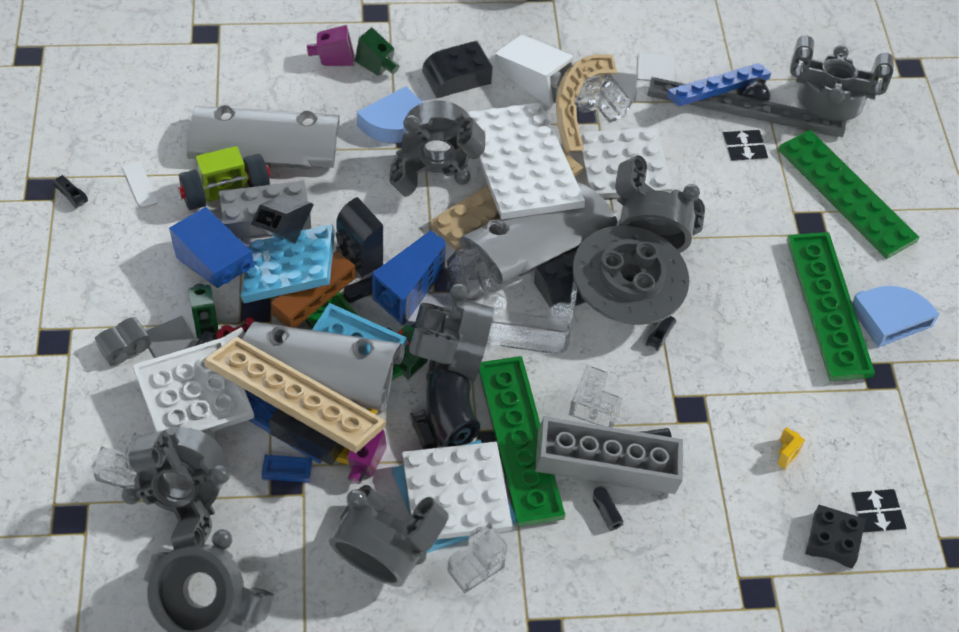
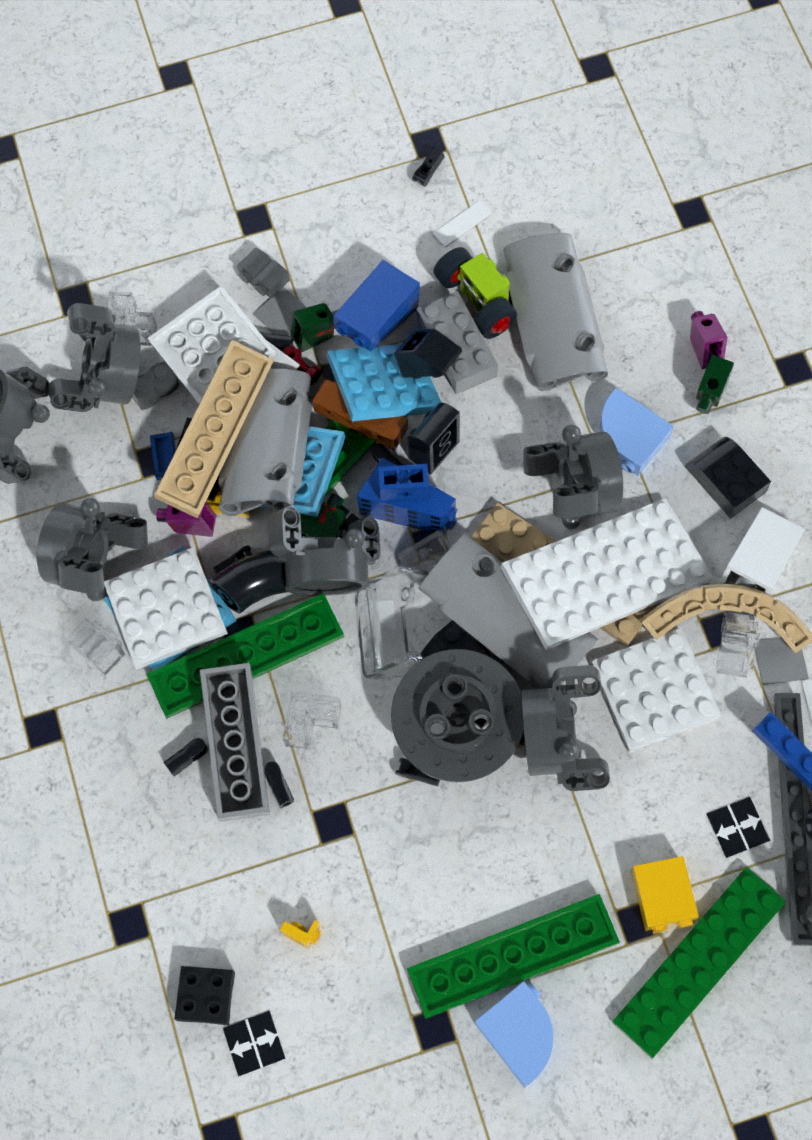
camera: 85 degrees right, 15 degrees up
(410, 253) = (403, 482): none -> blue brick
(794, 196) = (664, 894): none -> yellow brick

